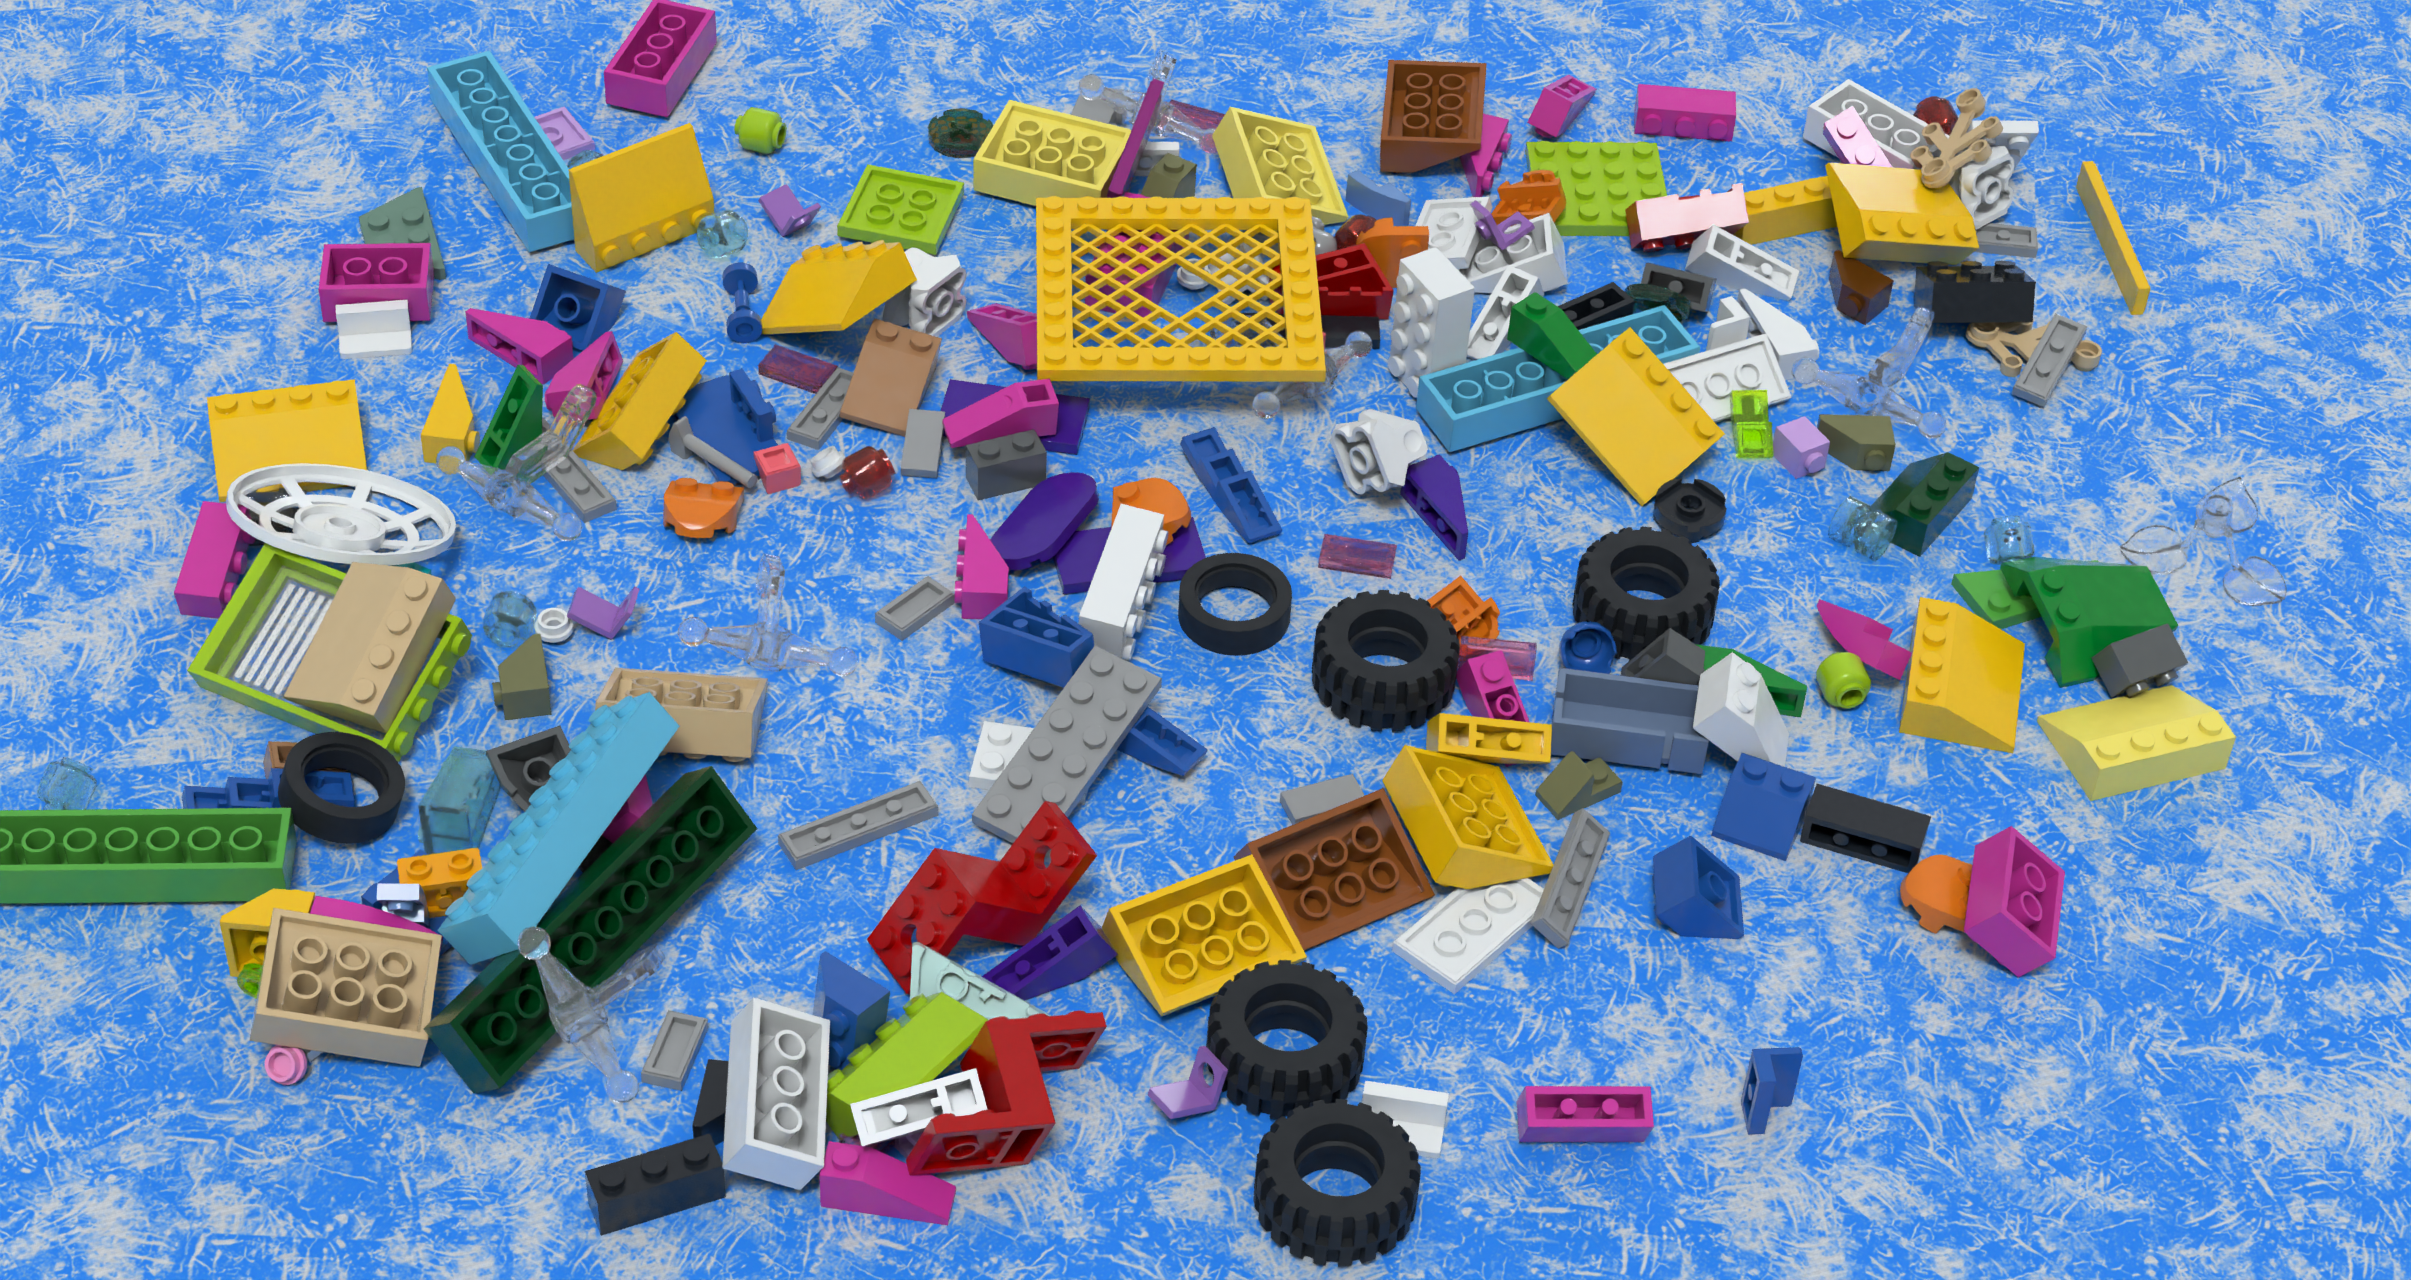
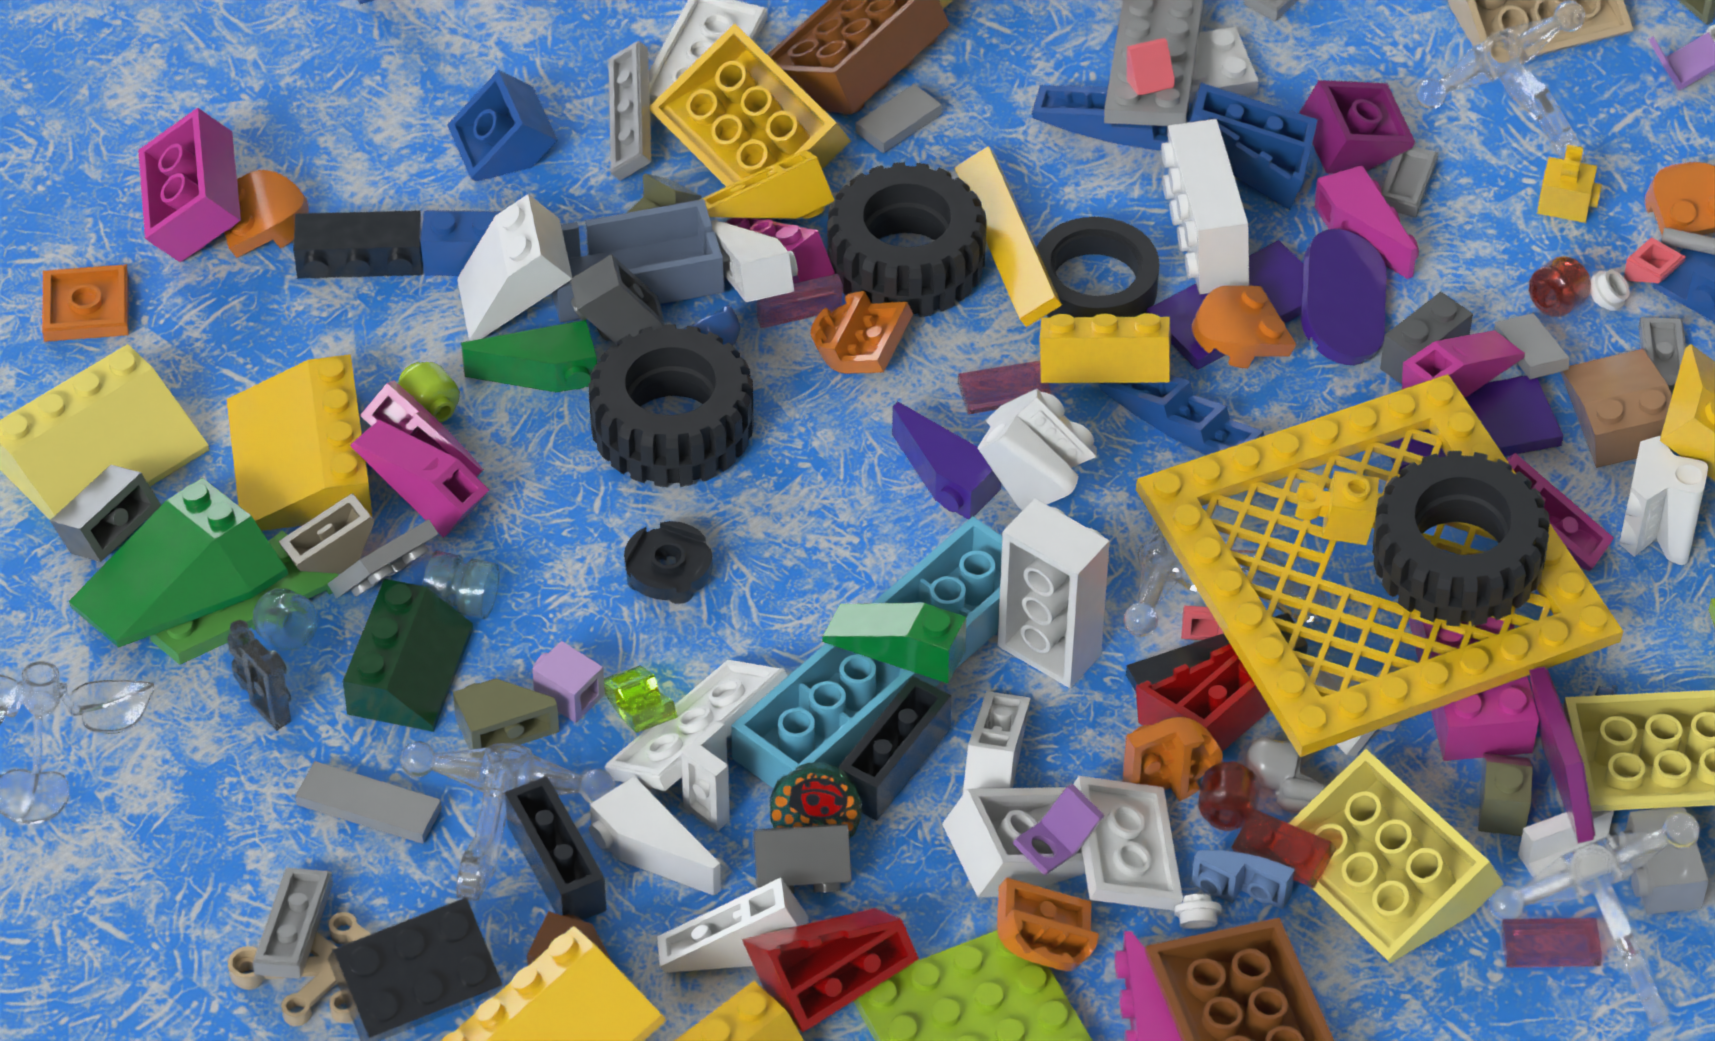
camera: 160 degrees right, 5 degrees up
(797, 540) = (1569, 187): none -> yellow brick
(936, 638) = (1356, 124): none -> magenta slope
(1107, 679) = (1149, 67): none -> coral slope
(1126, 235) = (1465, 492): none -> black tyre
(1189, 288) = (1346, 506): none -> yellow brick
(1269, 523) = (1105, 349): none -> yellow slope
(1295, 643) = (1010, 239): none -> yellow tile
(1339, 195) = (1285, 844): none -> clear red plate
(1422, 184) = (1197, 911): none -> white plate
(1531, 661) = (755, 262): none -> white slope
(1635, 416) = (767, 607): yellow slope -> none
(1849, 331) = (555, 849): none -> black brick
(1869, 590) = (422, 475): none -> dark pink slope
(1923, 545) = (384, 561): none -> light grey plate
(1963, 579) = (331, 539): none -> dark tan slope
(1977, 431) = (368, 802): none -> light grey tile
(2041, 498) = (260, 674): none -> clear smoke plate
(2124, 872) = (85, 303): none -> orange tile

